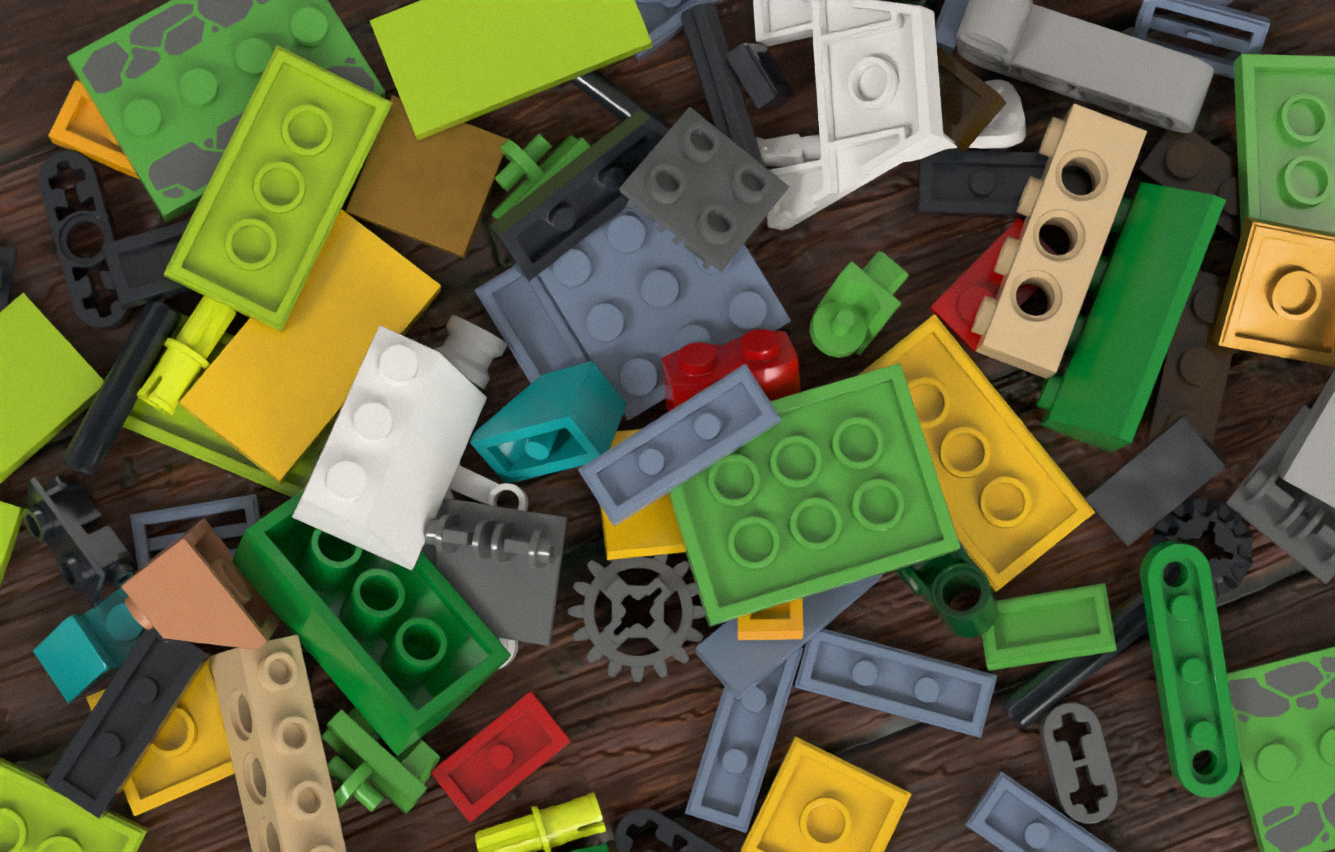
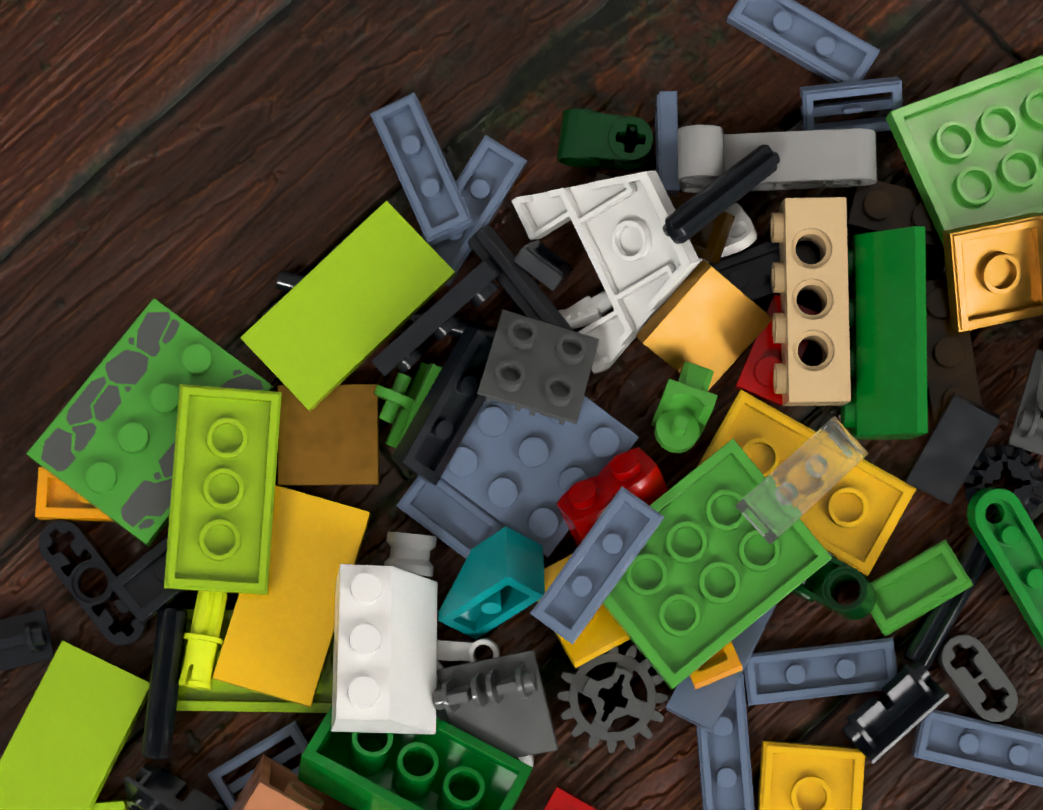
camera: 20 degrees left, 0 degrees up
(611, 88) = (439, 318): none -> black plate
(921, 216) = (704, 323): none -> tile
(938, 771) = (884, 723): none -> black hinge
(961, 443) = (801, 480): none -> clear tile
(999, 68) = (721, 194): none -> black axle

